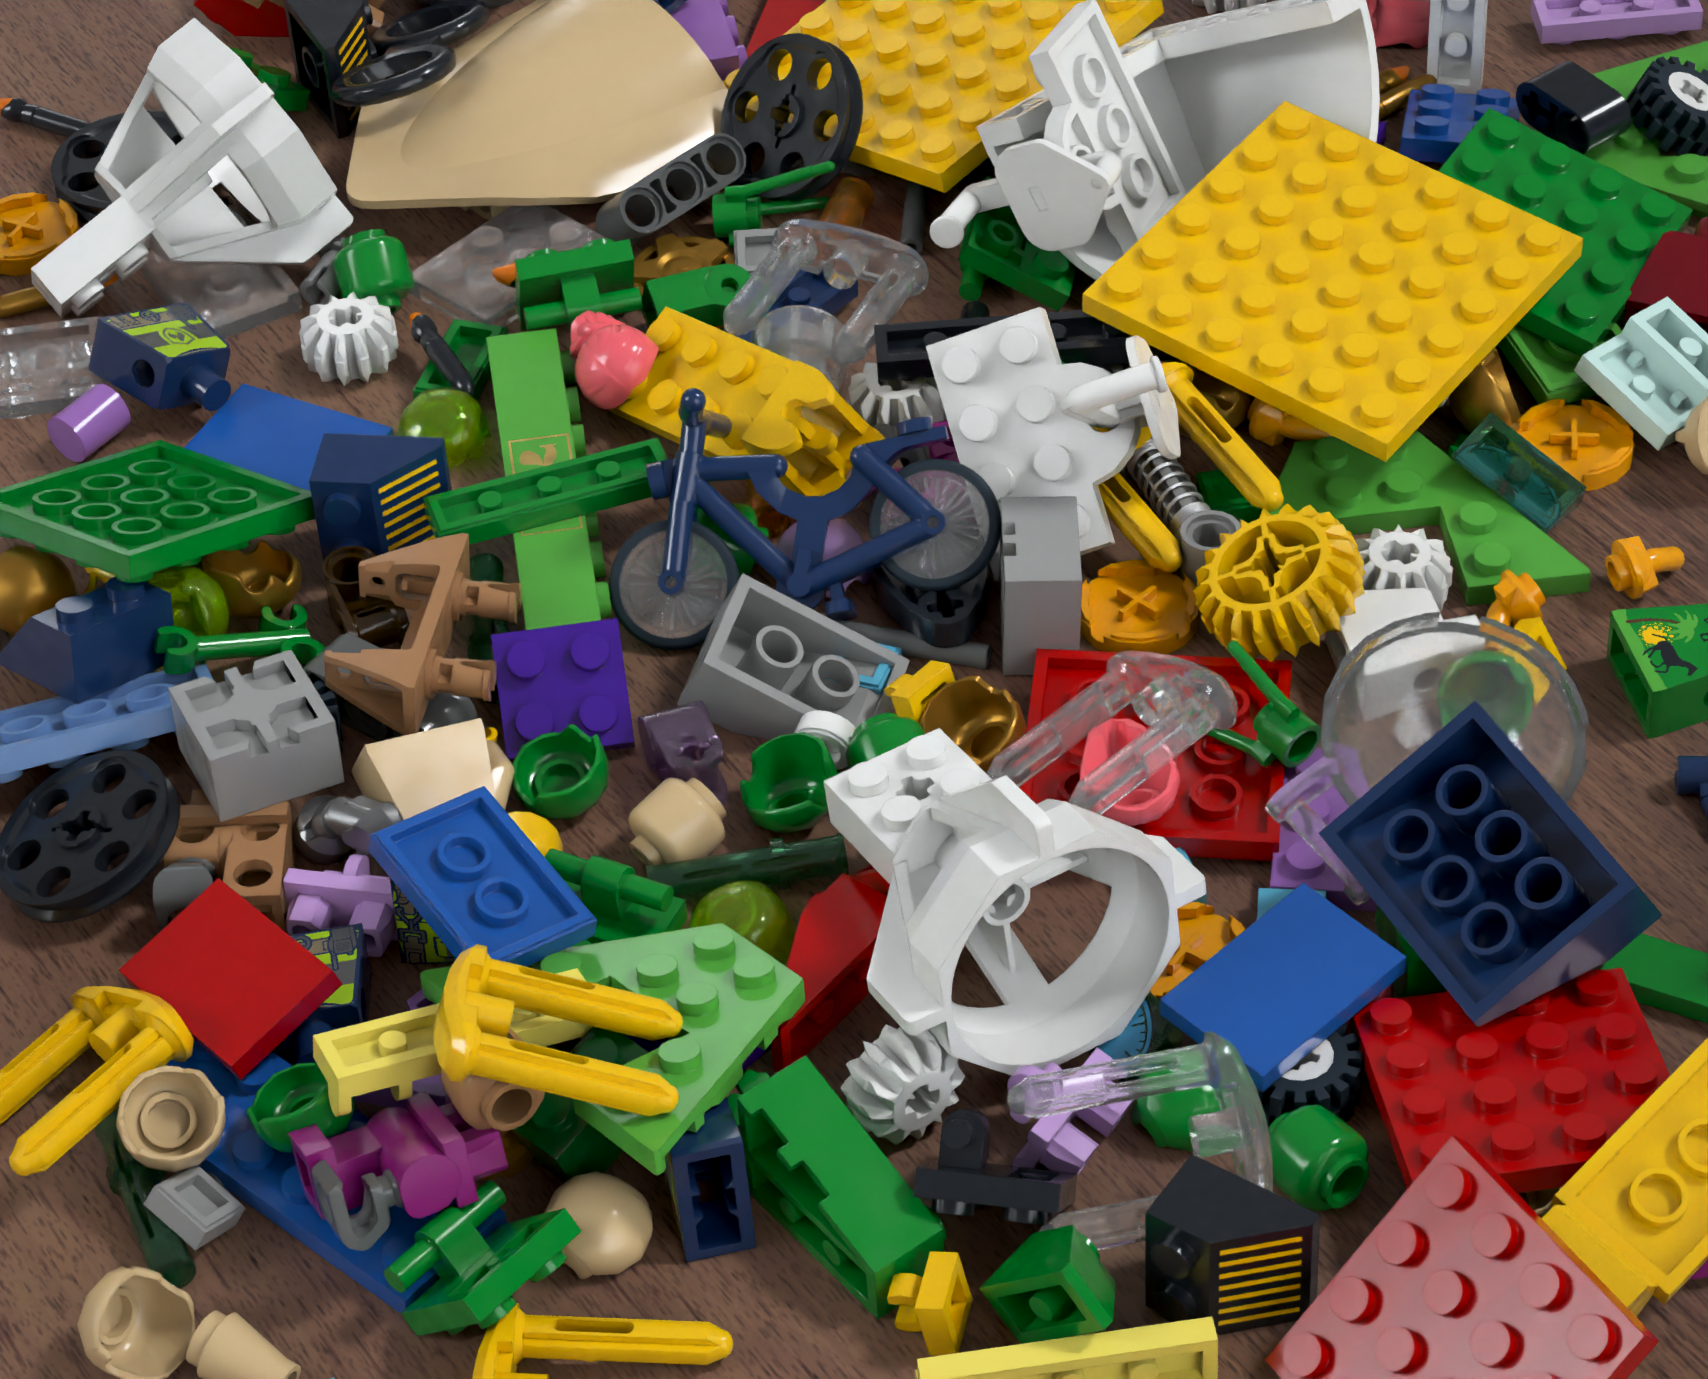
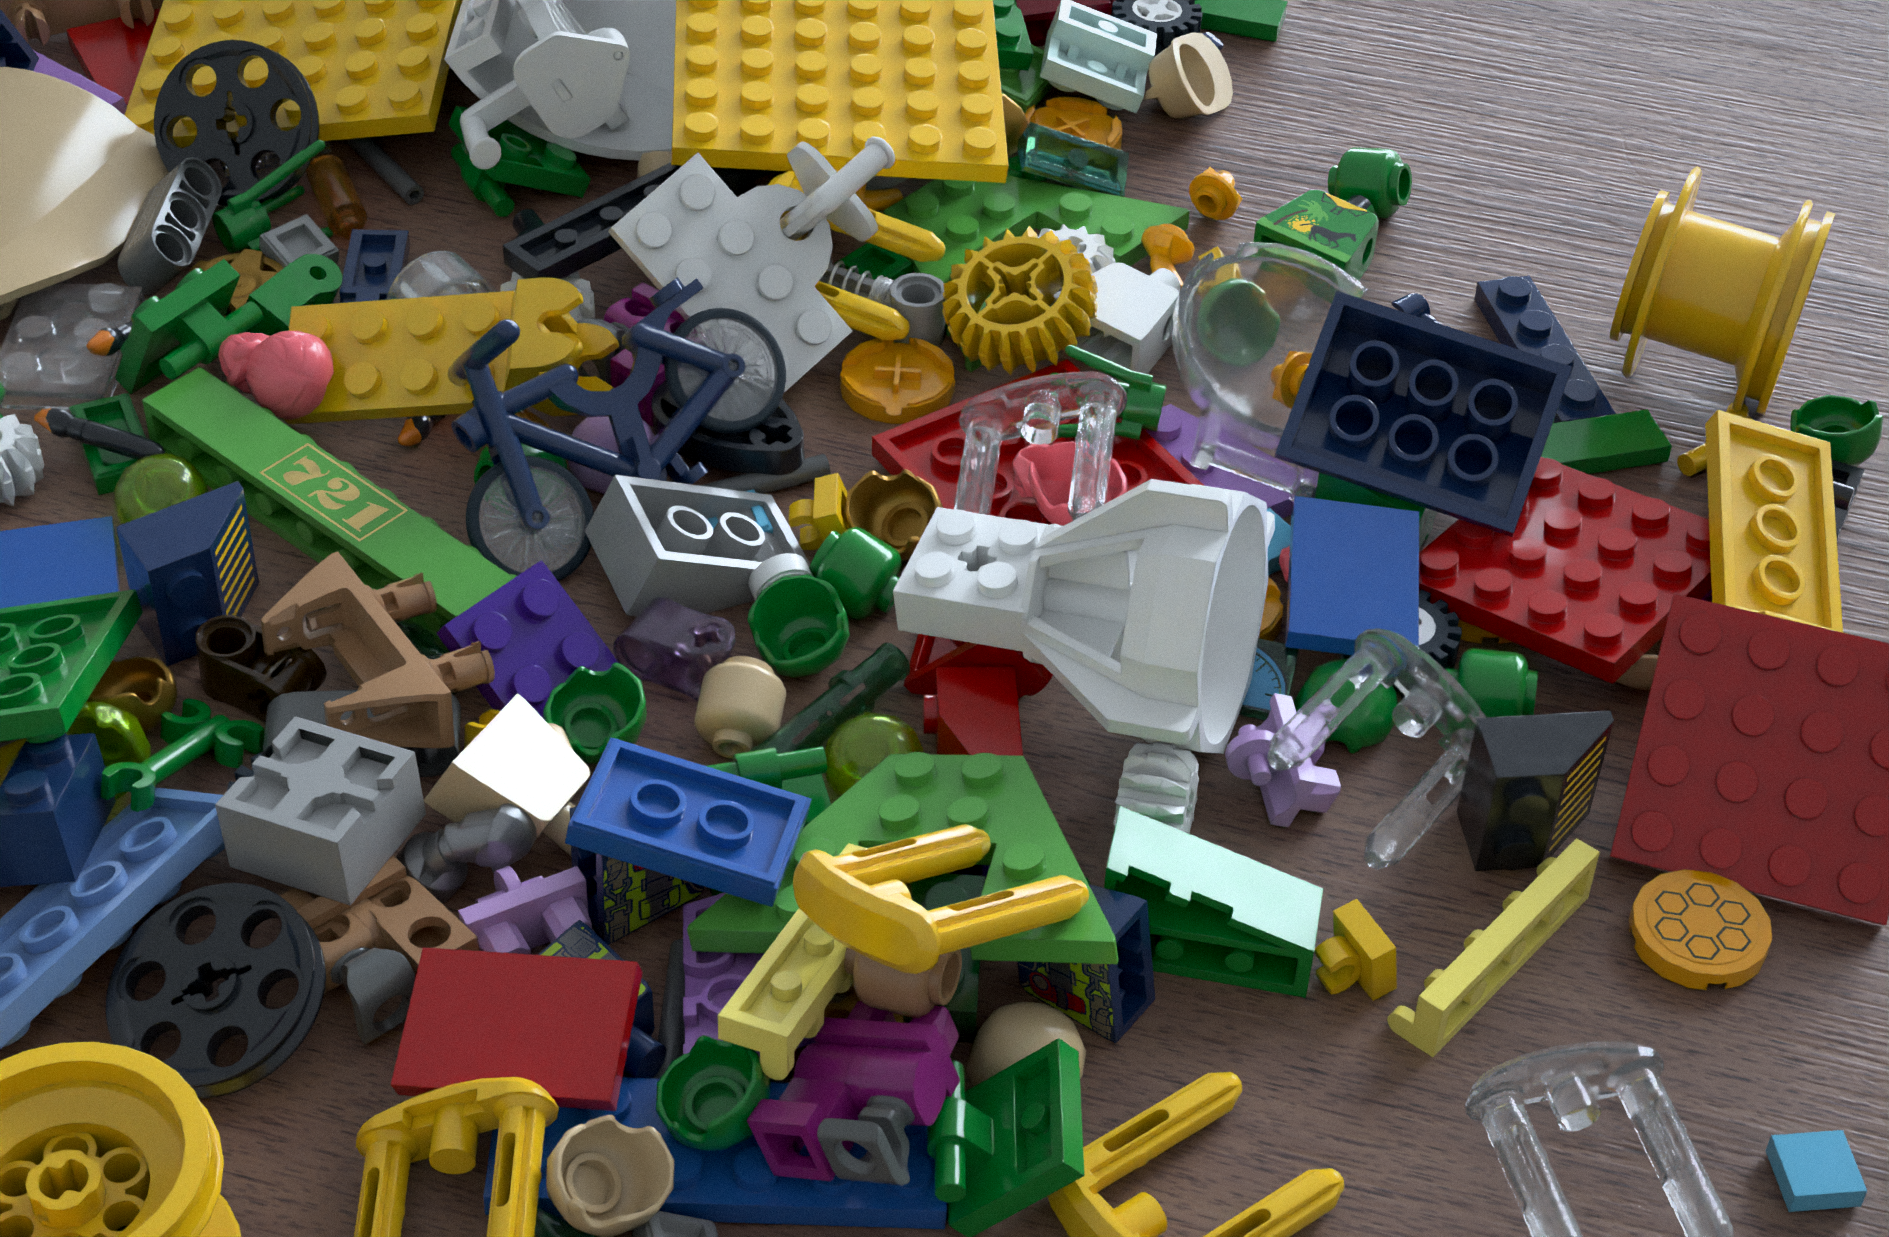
camera: 45 degrees left, 0 degrees up
(545, 493) = (353, 496): green tile -> none
(844, 257) = (407, 211): clear piece -> none
(965, 1181) = (1301, 839): black plate -> none
(1038, 579) = (841, 381): light grey piece -> none
(1053, 1287) = (1447, 883): green slope -> none

